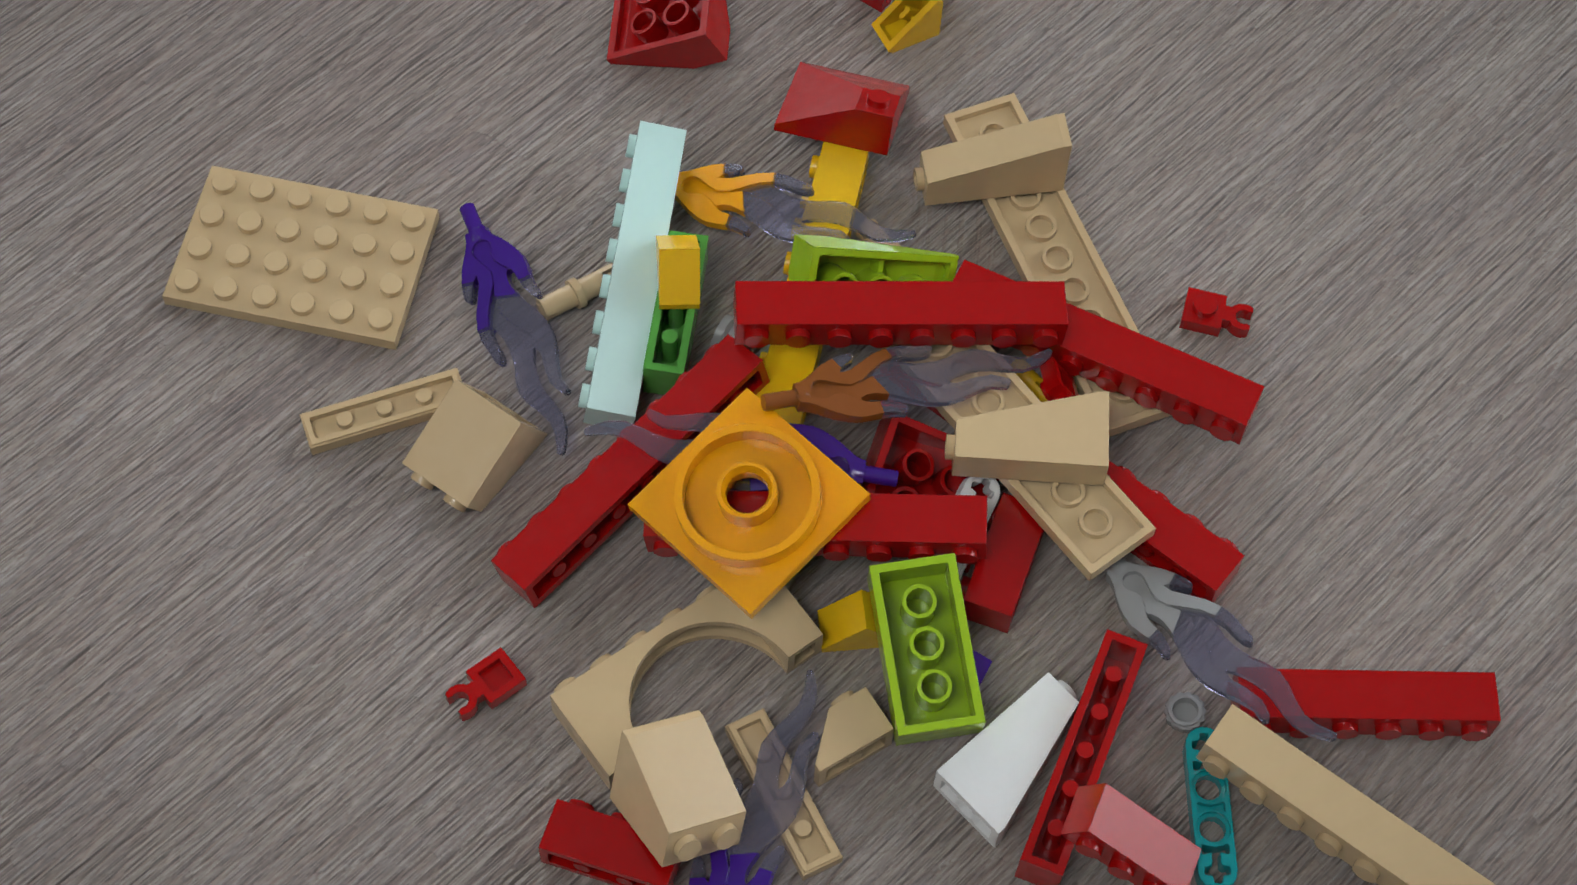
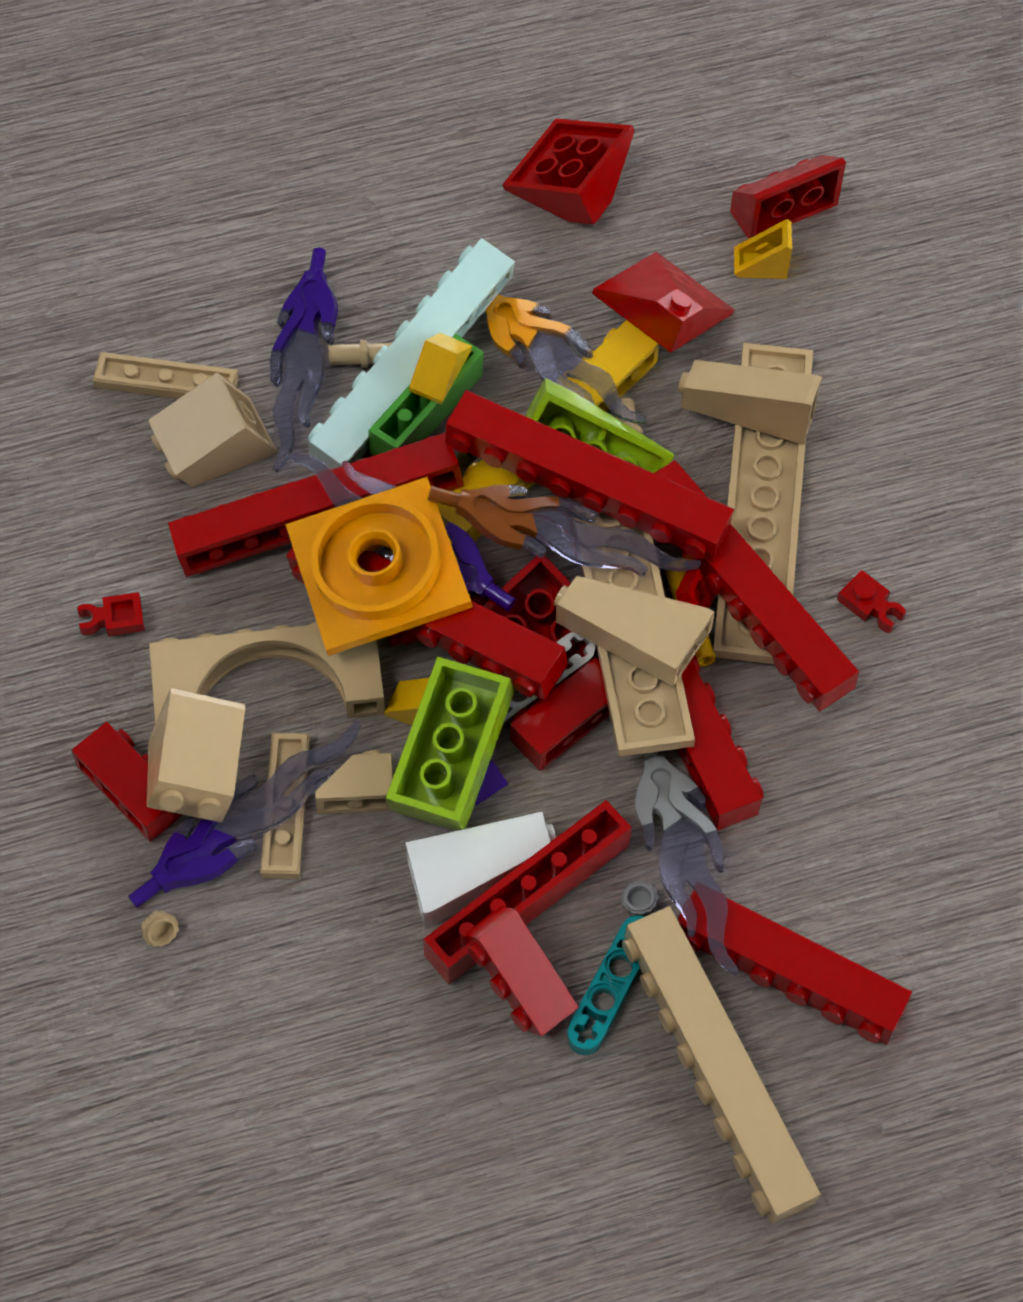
camera: 30 degrees right, 0 degrees up
(302, 257) = (177, 236): tan plate -> none

